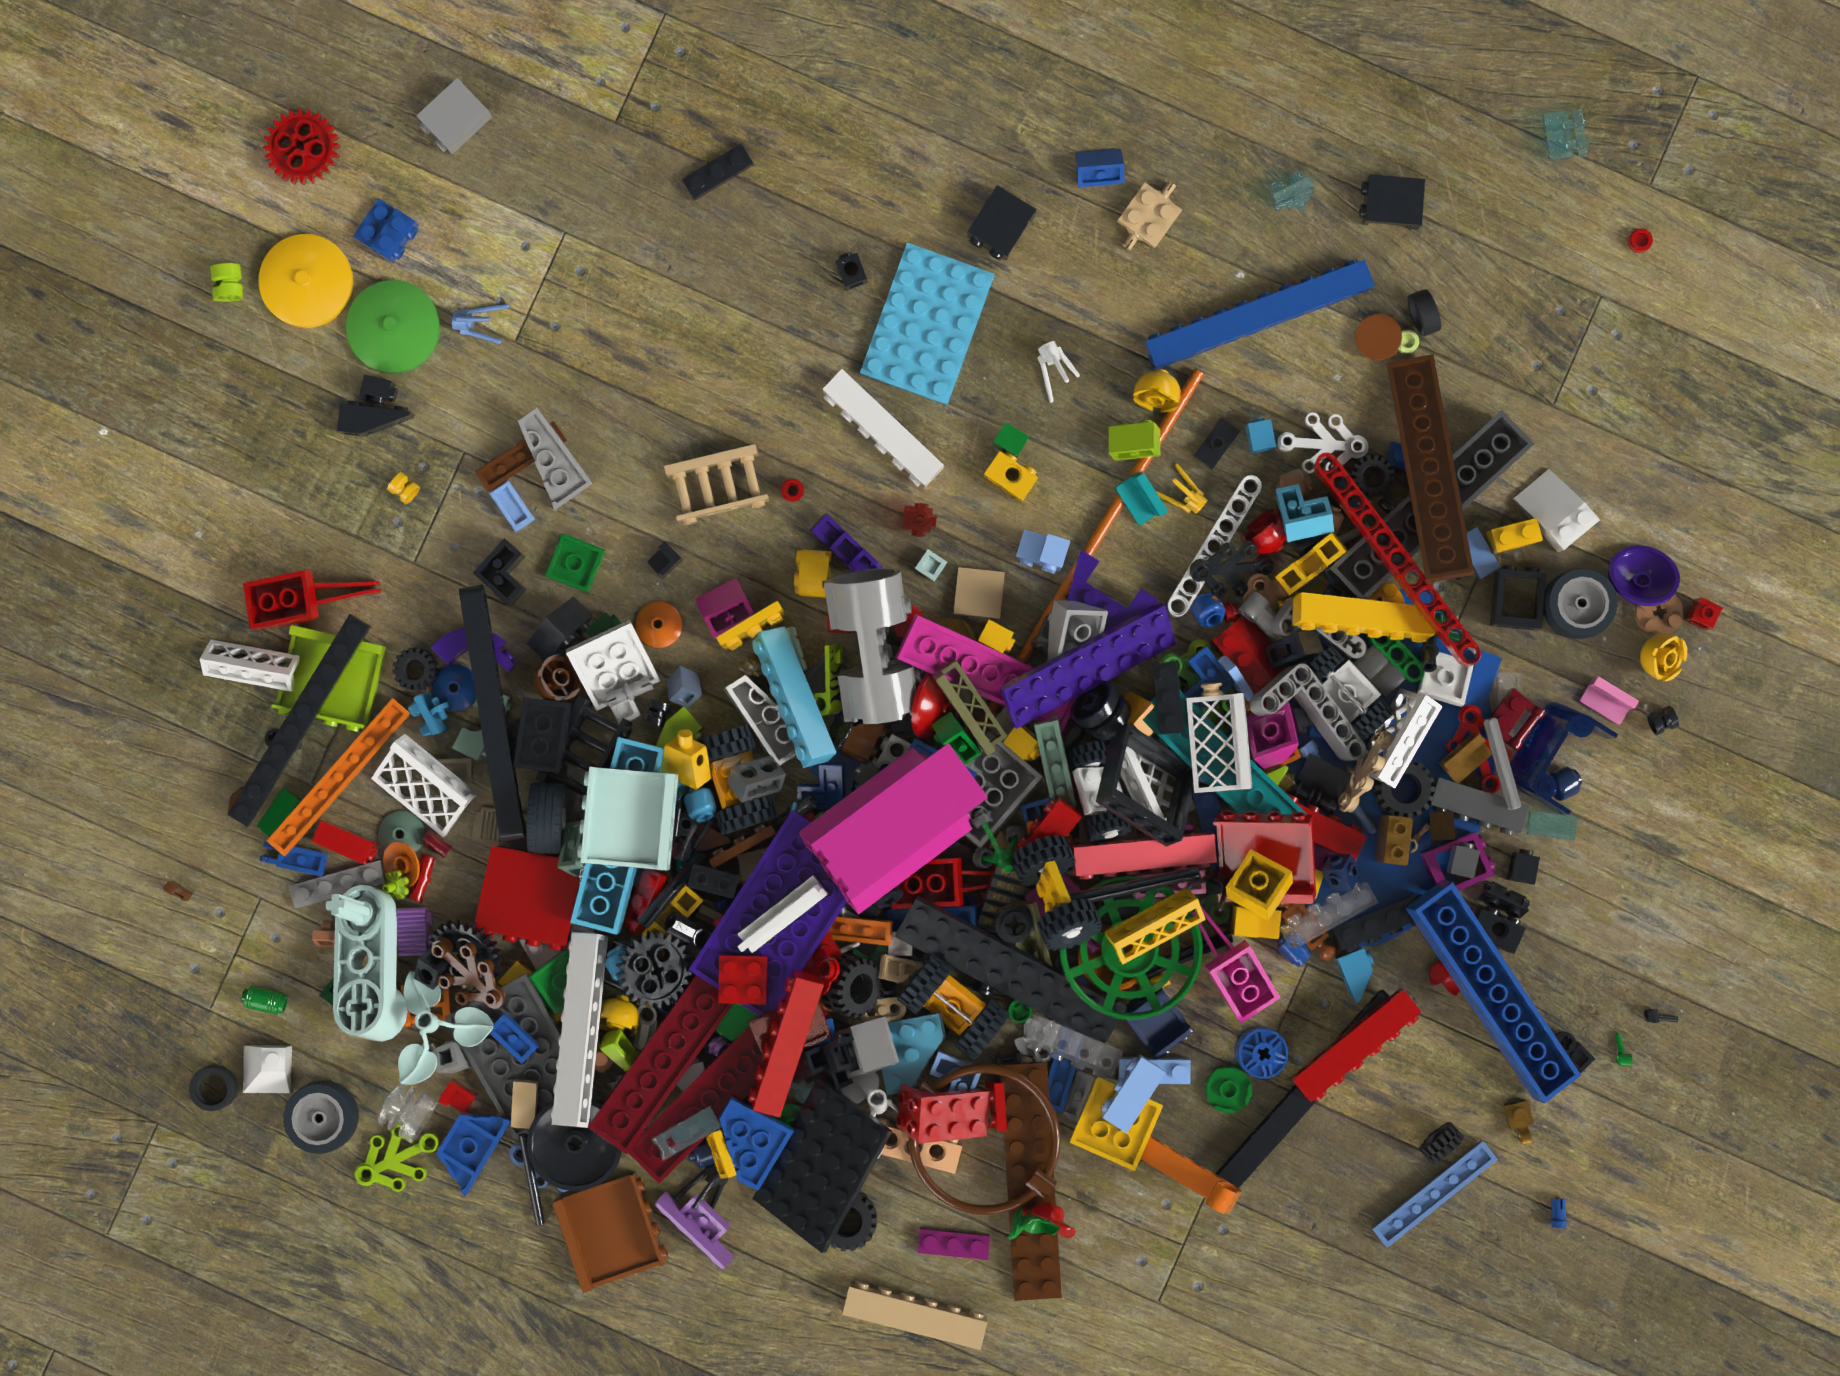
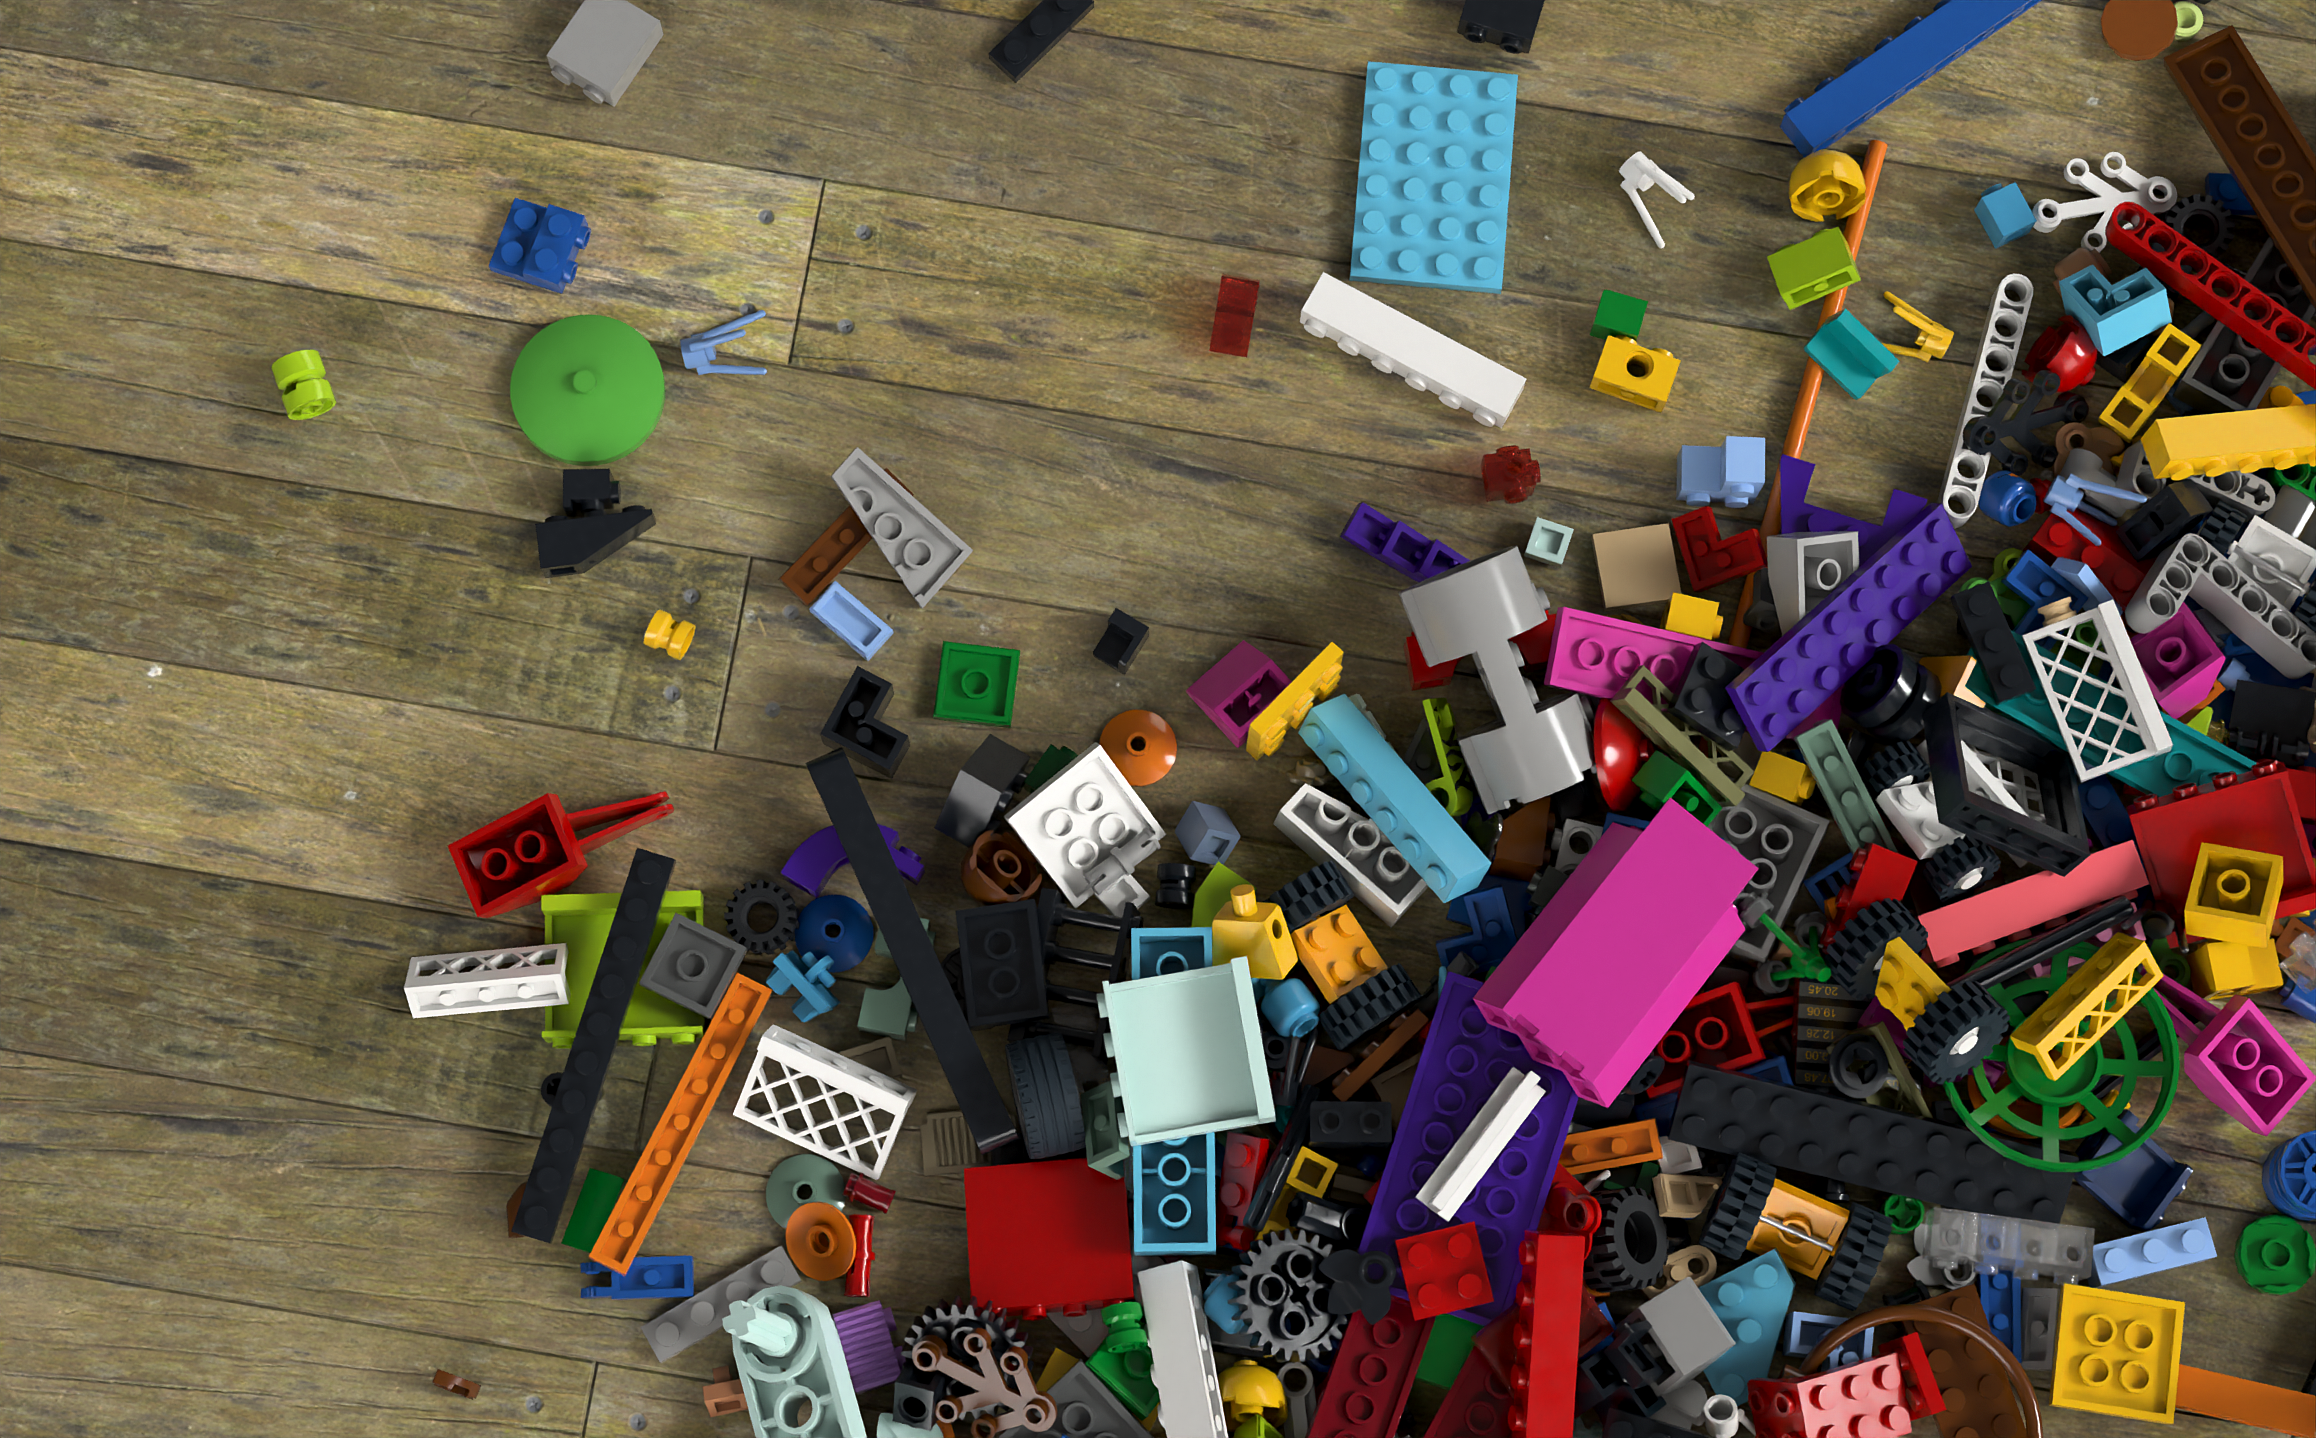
camera: 20 degrees left, 10 degrees down
(291, 129) = (348, 128): red gear -> none
(305, 280) = (429, 354): yellow dish -> none
(345, 842) = (718, 1229): red brick -> none
(367, 688) = (693, 966): none -> dark grey plate
(395, 884) = (819, 1276): lime plant -> none
(555, 962) = (1124, 1331): none -> green wheel
(691, 975) = (1354, 1286): none -> black plate
(701, 467) = (1173, 463): tan fence -> none
(718, 1045) = (1425, 1403): medium lavender plate -> none
(756, 778) = (1373, 939): dark grey brick -> none
(784, 379) = (1234, 315): none -> clear red plate
(792, 483) = (1297, 471): red plate -> none
(812, 572) = (1367, 598): yellow brick -> none
(856, 279) = (1293, 140): black brick -> none
(986, 684) = (1703, 699): none -> black plate
(1022, 599) = (1710, 558): none -> red plate
(1132, 1093) = (2132, 1291): light blue brick -> none
(1216, 443) = (1939, 245): black plate -> none
(1241, 618) = (2065, 496): none -> medium blue plant

